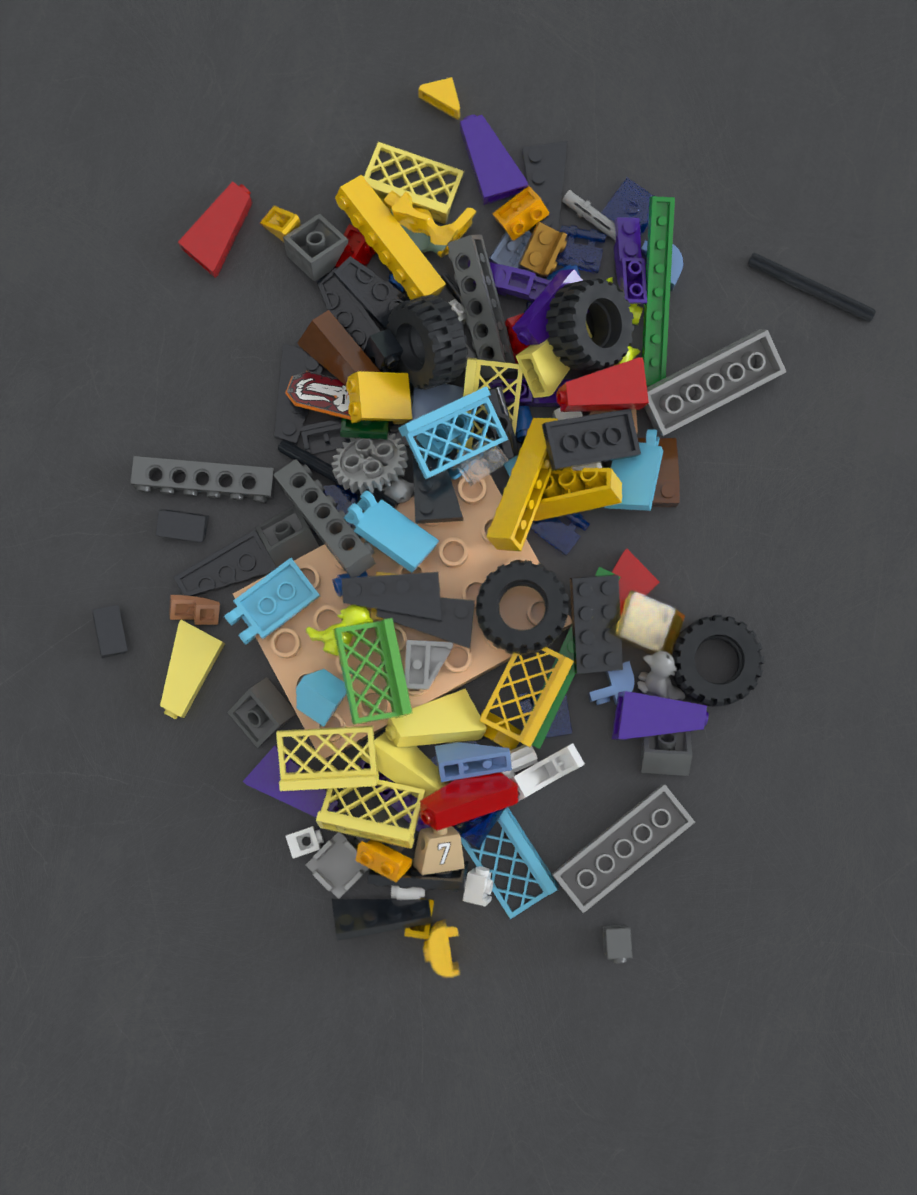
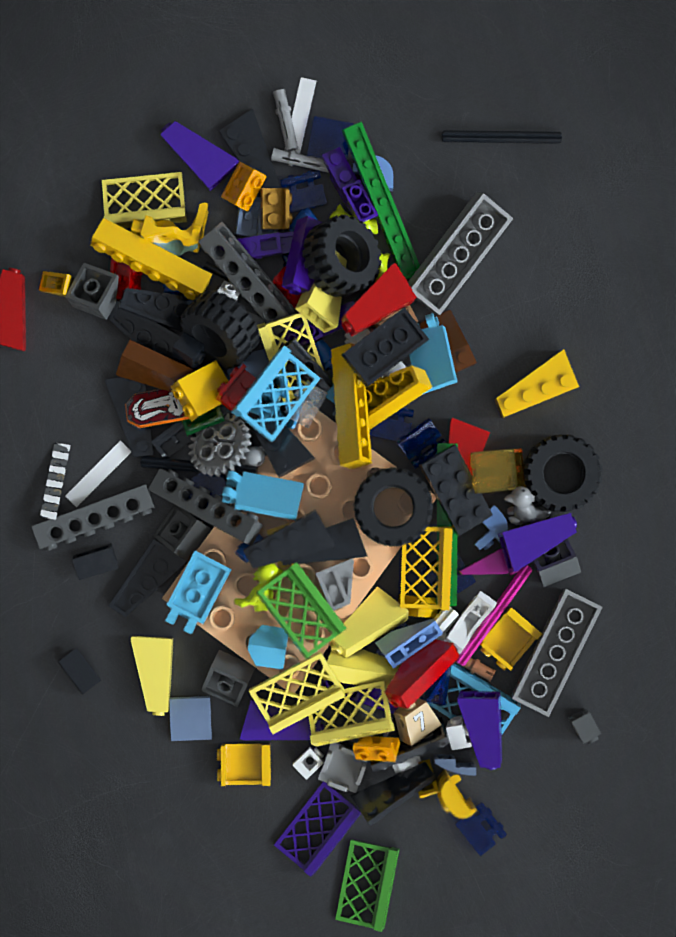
camera: 20 degrees left, 5 degrees up
(181, 422) = (55, 481): none -> sticker
(194, 608) = (139, 621): nougat slope -> none
(202, 736) = (190, 718): none -> sand blue slope
(229, 437) = (98, 473): none -> white sticker
(235, 812) = (244, 764): none -> yellow panel
(289, 937) = (330, 841): none -> dark purple fence
(321, 1016) = (384, 889): none -> bright green fence
(408, 409) = (234, 390): none -> red bracket
(442, 96) = (135, 118): yellow slope -> none
(447, 1005) = (476, 833): none -> clear blue plate
(453, 913) = (449, 763): none -> sand blue slope
(509, 889) = (483, 722): none -> dark purple slope
(529, 823) = (479, 668): none -> nougat pin
(574, 777) = (494, 615): none -> dark pink axle
(579, 811) = (509, 639): none -> yellow panel
(581, 555) = (418, 439): none -> clear blue plate
(593, 722) = (489, 565): none -> magenta slope
(597, 158) = (283, 112): none -> light grey pin
(613, 170) = (302, 109): none -> white sticker
(734, 559) = (541, 385): none -> yellow wedge

